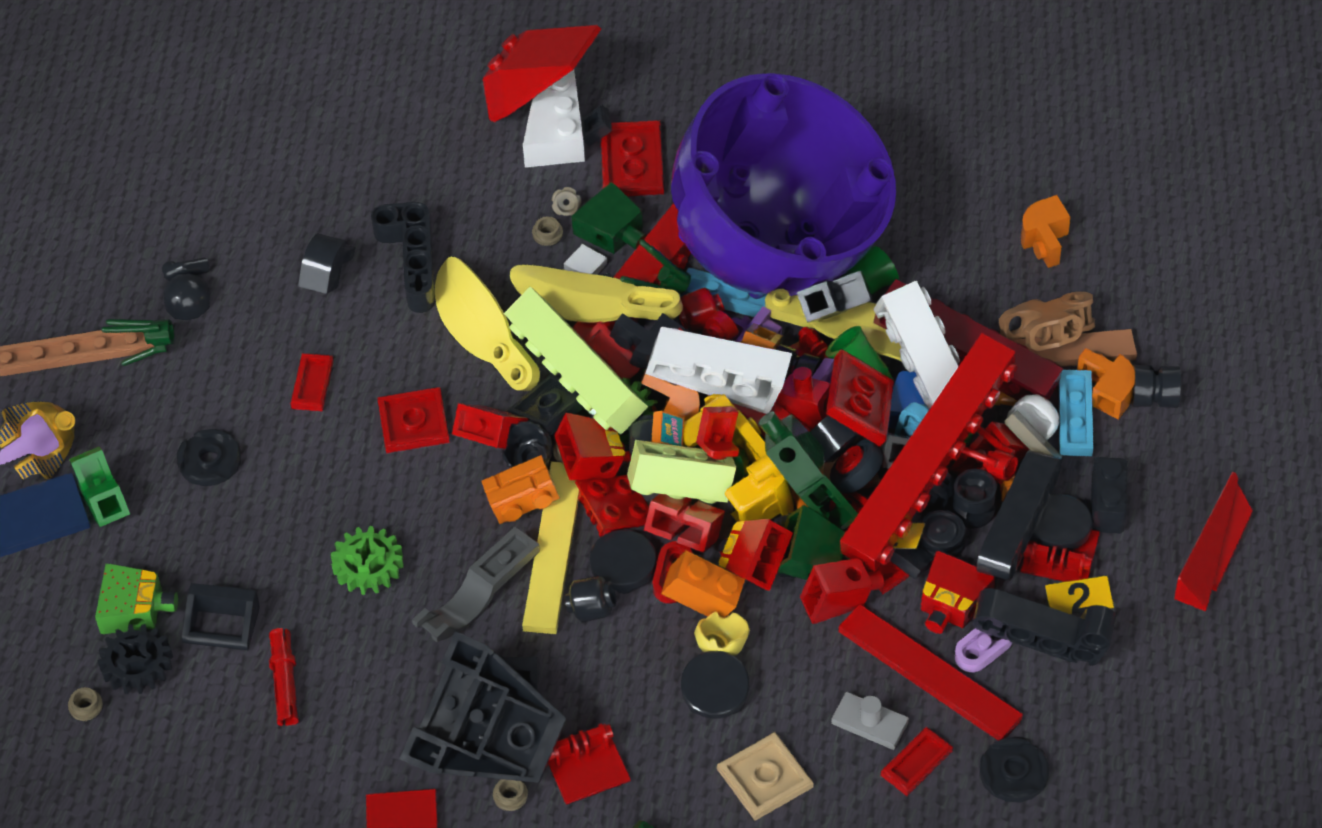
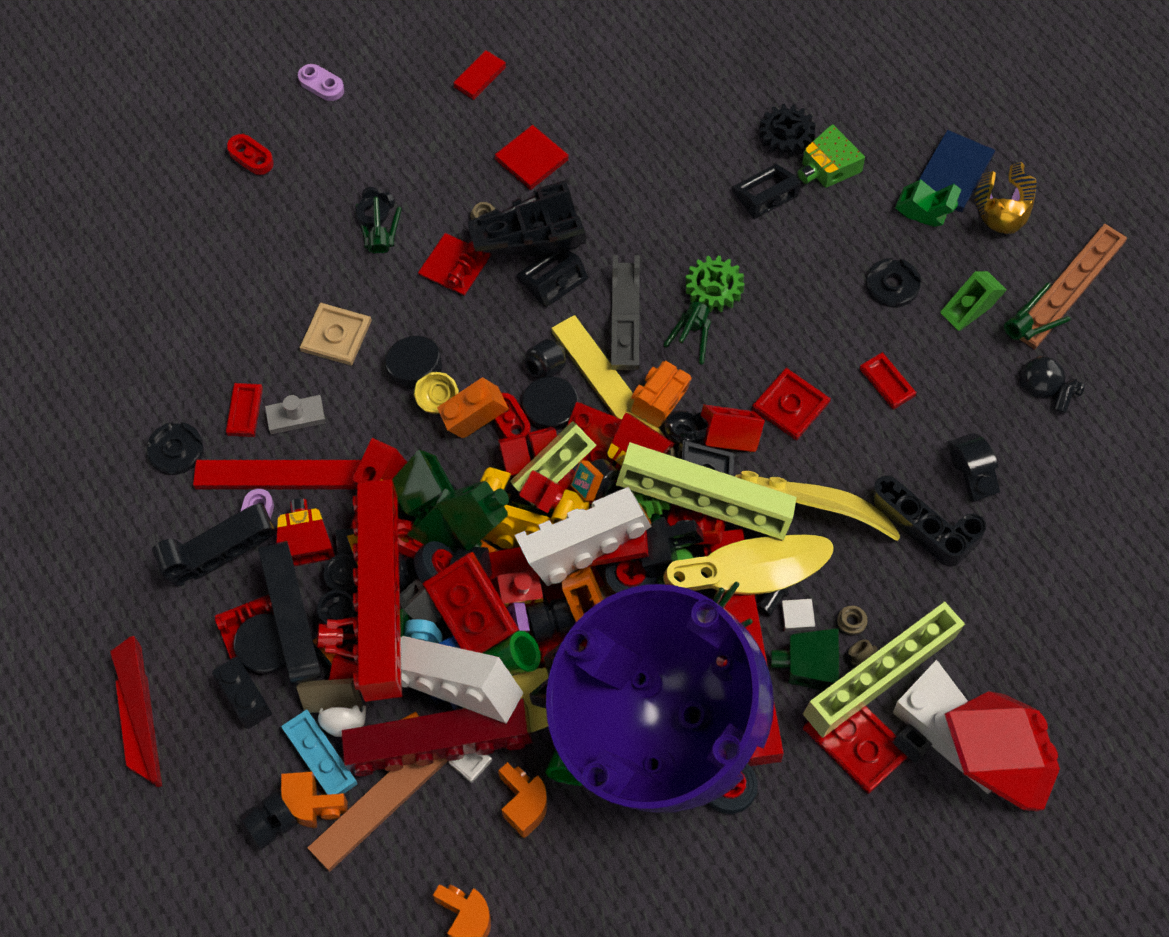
camera: 140 degrees right, 10 degrees up
(82, 696) = (788, 85): dark tan plate -> none
(164, 385) = (973, 299): none -> bright green slope
(282, 665) = (698, 189): red pin -> none
(417, 542) = (693, 319): none -> dark green plant
(567, 165) = (883, 669): none -> yellowish green brick
(755, 550) = (457, 452): red torso -> none
(934, 267) = (528, 805): none -> orange brick
(1052, 321) = (388, 818): medium nougat piece -> none
(1078, 595) = (214, 604): yellow sticker -> none

